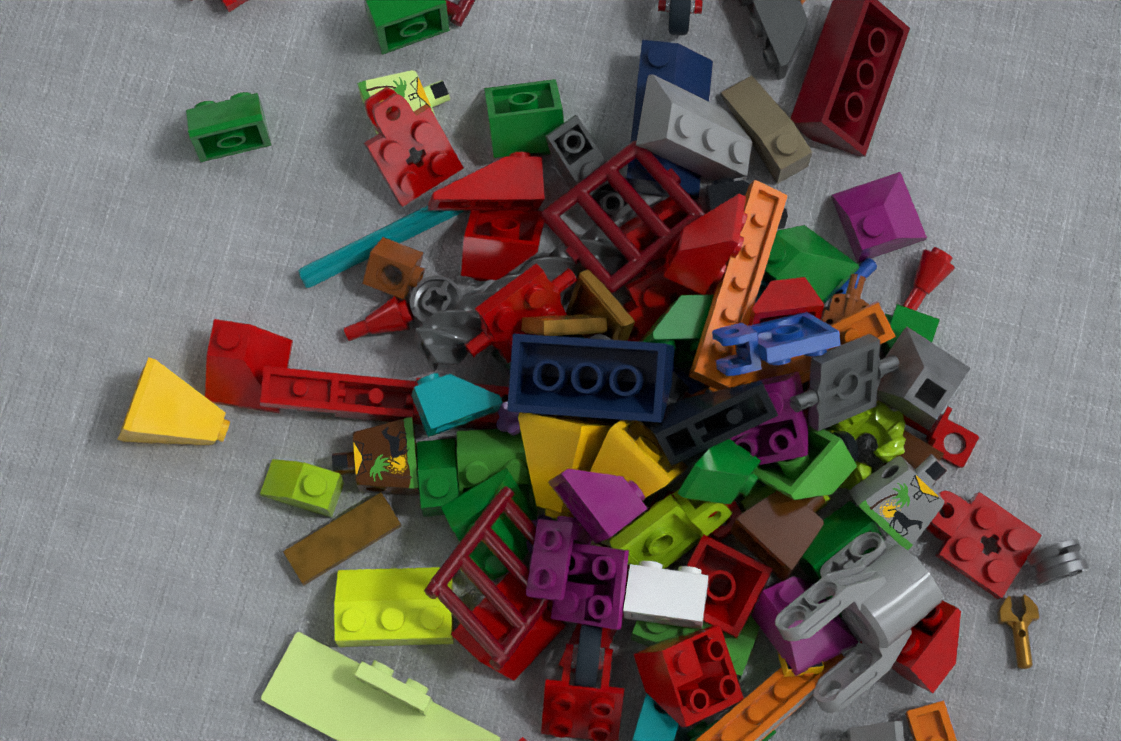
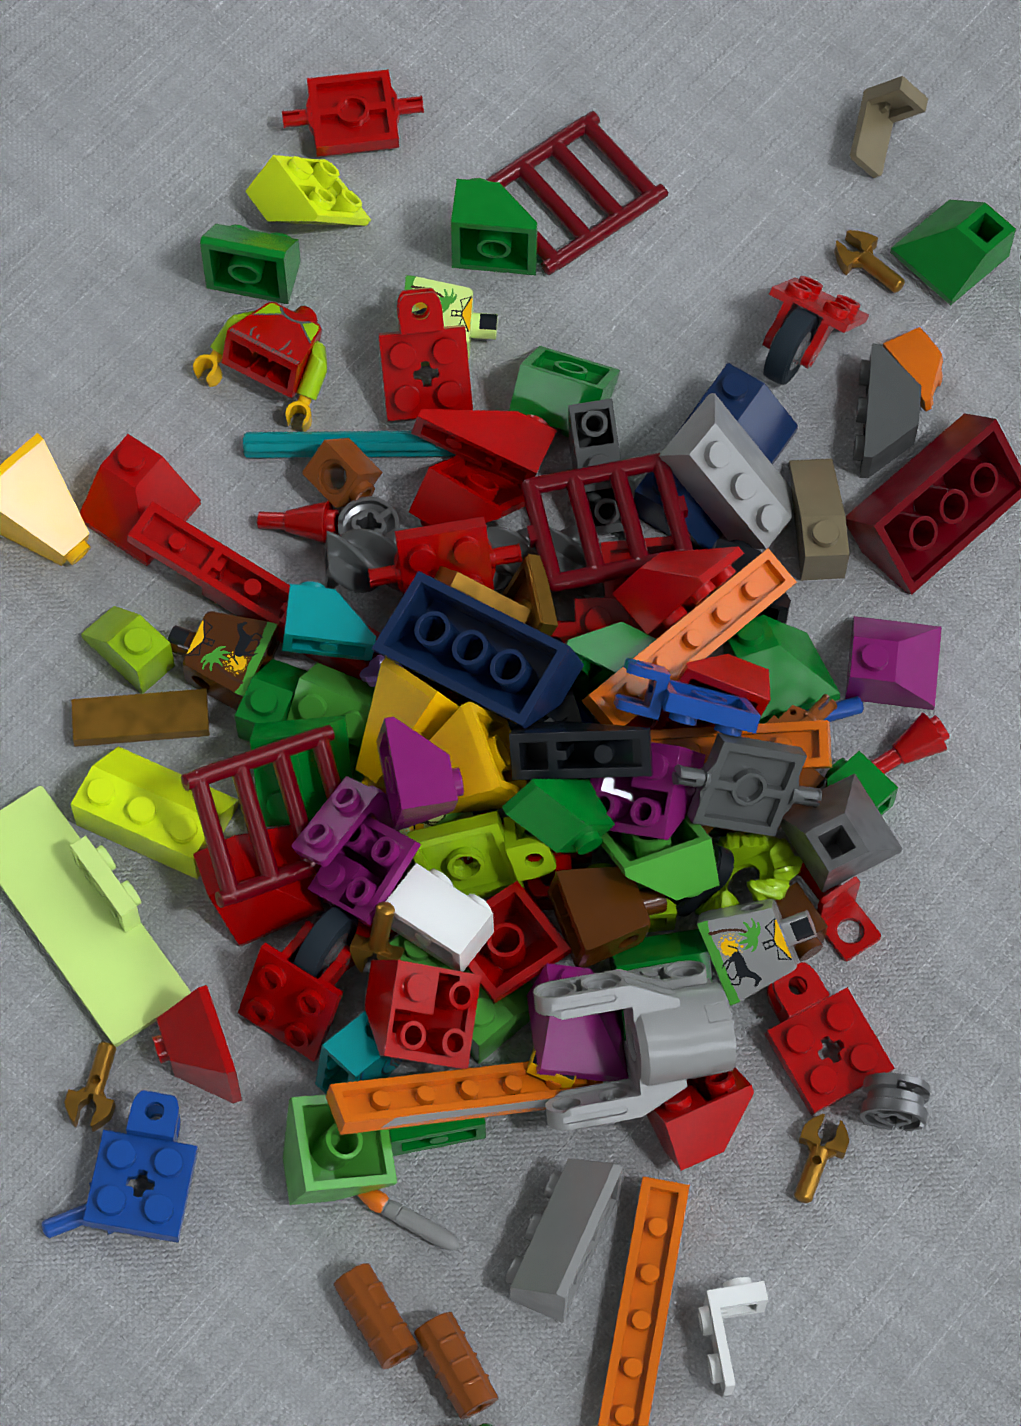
camera: 25 degrees right, 10 degrees down
(241, 50) = (305, 193): none -> neon yellow slope
(286, 191) = (274, 349): none -> red torso
(630, 636) = (377, 943): none -> pearl gold bar

